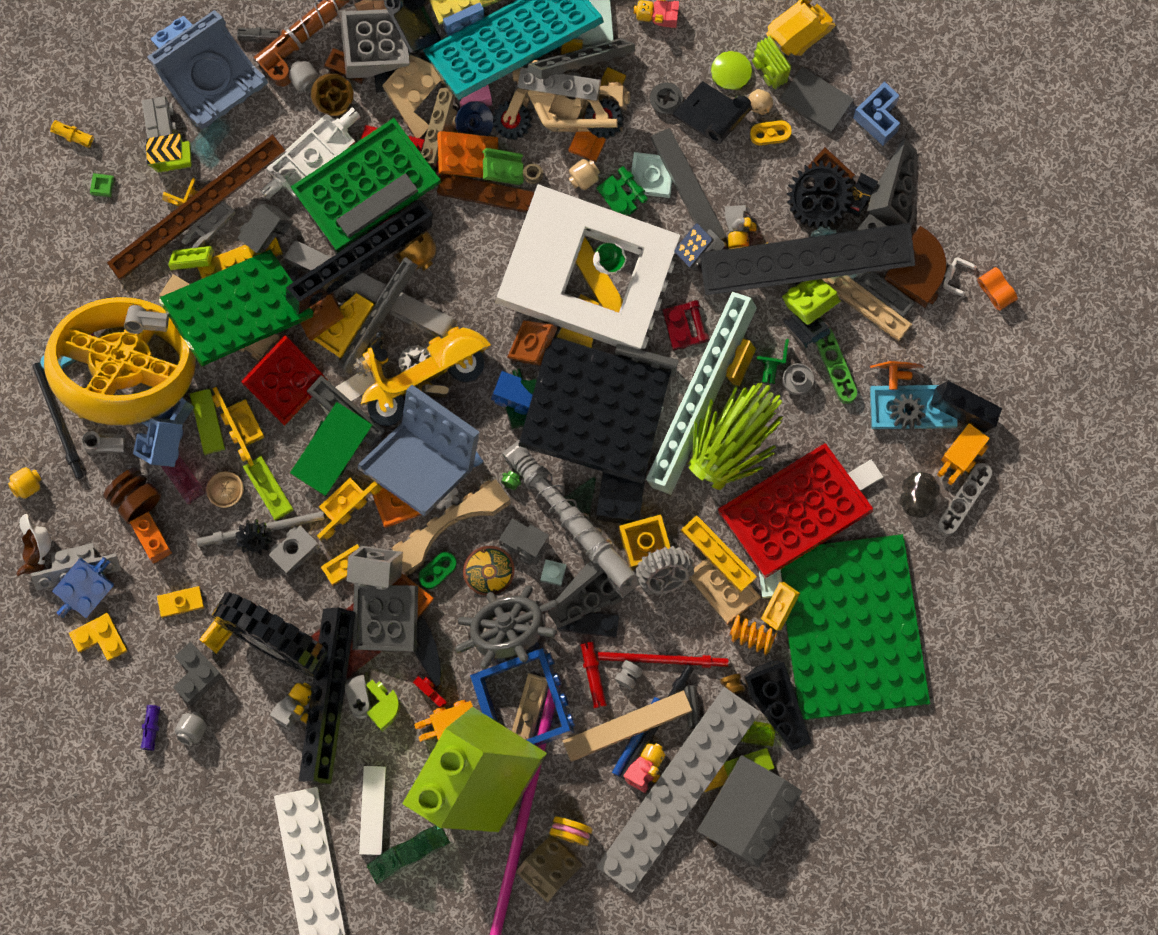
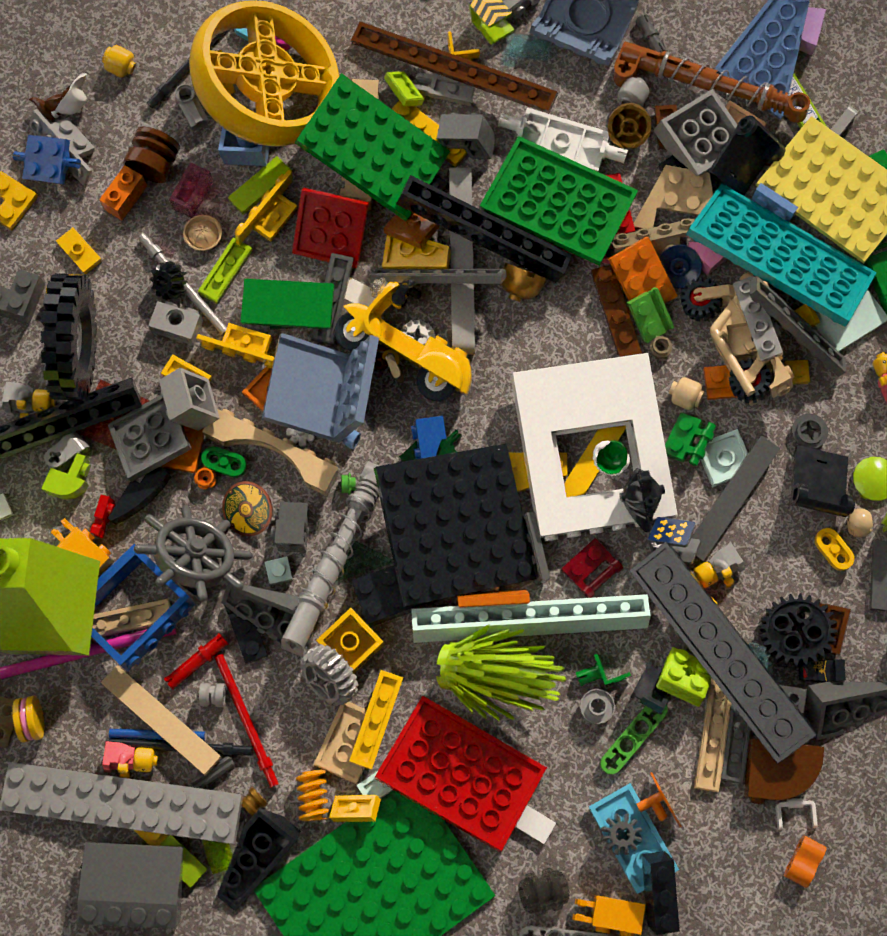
camera: 60 degrees right, 0 degrees up
(140, 319) = (311, 66): light grey piece -> none
(160, 442) = (206, 147): medium blue brick -> none
(377, 205) = (542, 218): dark grey tile -> none
(442, 587) = (205, 472): none -> orange plate
(531, 342) = (491, 431): dark orange plate -> none
(654, 252) = (642, 497): none -> black helmet
(671, 410) = (493, 598): none -> orange tile
(739, 366) = (583, 641): yellow plate -> none

